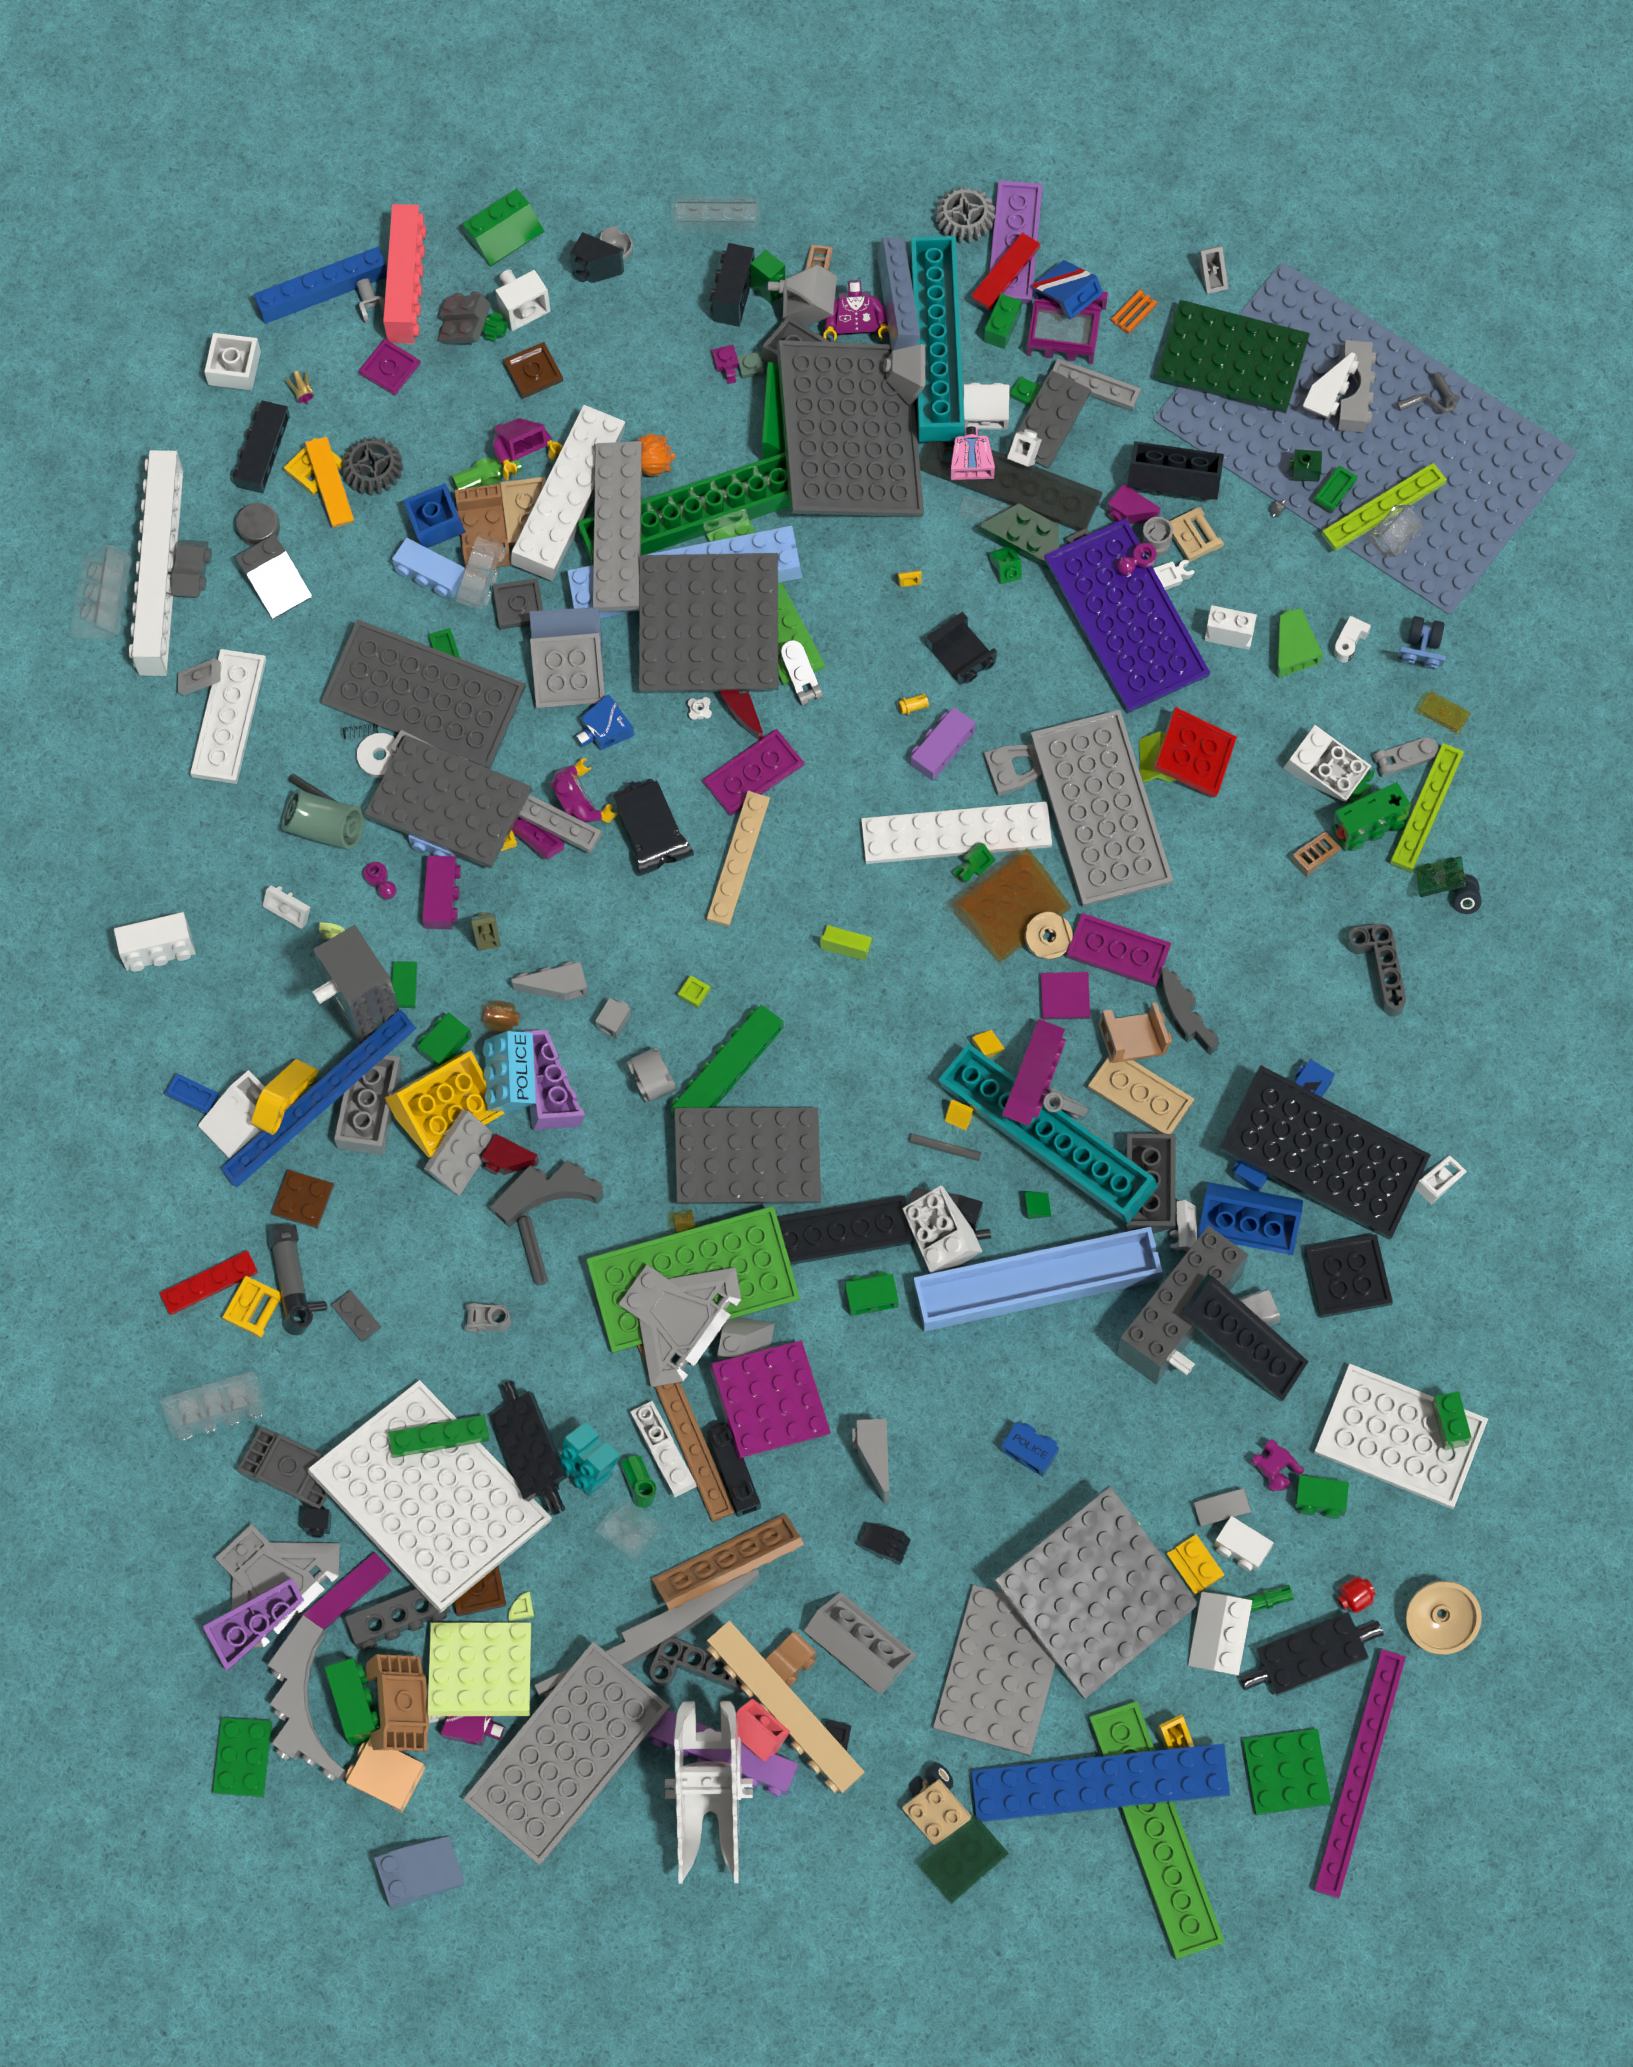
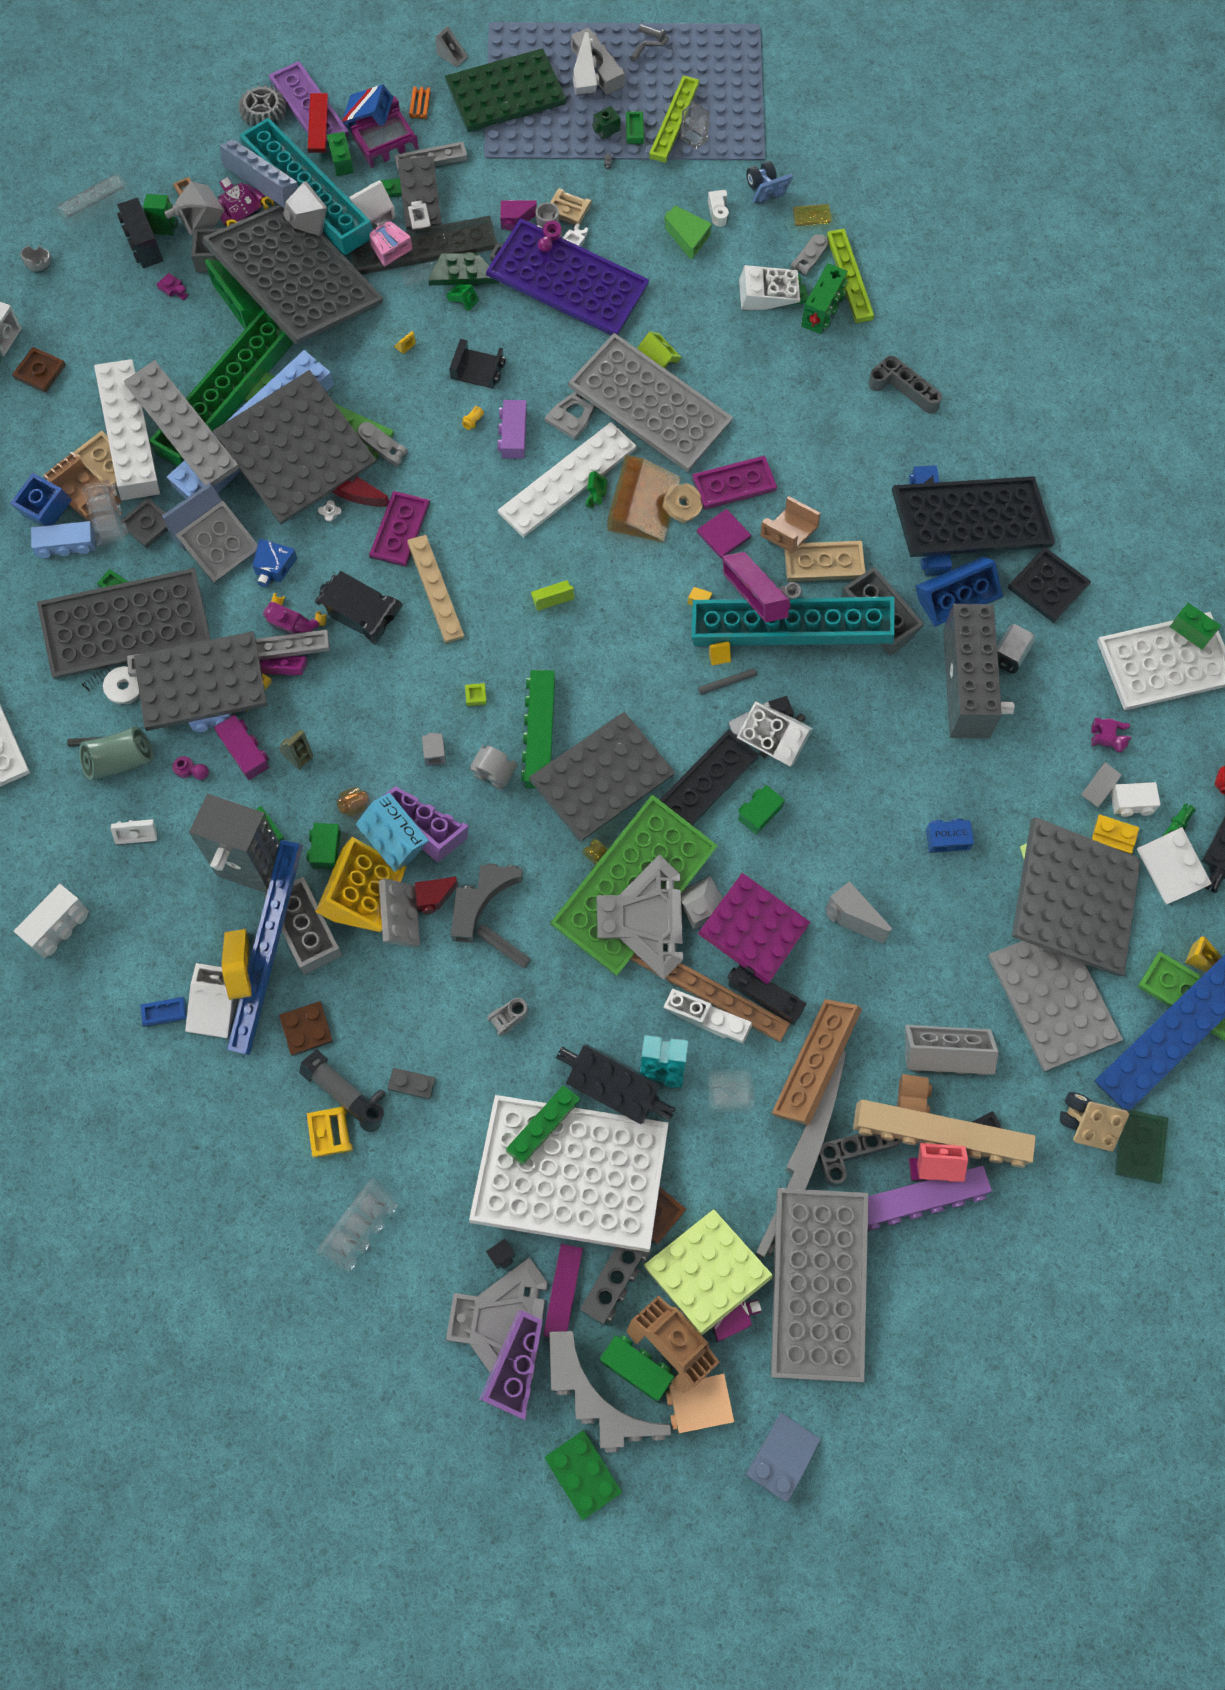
camera: 40 degrees left, 0 degrees up
(208, 1282) = (281, 1139): red plate -> none
(284, 1467) = (446, 1232): dark grey plate -> none
(329, 930) = (181, 826): yellowish green tile -> none
(482, 473) = (57, 451): bright green piece -> none
(520, 439) = (65, 414): magenta torso -> none
(521, 1608) = (698, 1203): yellowish green tile -> none
(557, 983) = (377, 751): light grey slope -> none
(595, 259) = (30, 272): black slope -> none
(639, 1479) = (707, 1050): green piece -> none
(655, 454) = (171, 367): orange hair -> none
(707, 1787) = (949, 1223): white animal -> none
(750, 365) = (191, 279): sand green plate -> none
(885, 1542) = (908, 968): black hand -> none
(1037, 1205) = (817, 677): green slope -> none
(1037, 1279) = (860, 723): light blue piece -> none
(1175, 470) = (527, 173): black brick -> none
(1180, 1004) = (815, 497): dark grey slope -> none
(1187, 1226) = (930, 629): white plate -> none
(1194, 752) = (681, 330): red plate -> none
(1230, 627) = (640, 243): white hips -> none
(1244, 1337) = (1030, 661): black plate -> none
(1306, 868) = (805, 357): medium nougat slope -> none
(1321, 1496) = (1155, 732): green brick -> none
(1439, 1180) = (1051, 491): white slope -> none
(1448, 876) = (899, 305): clear green plate -> none

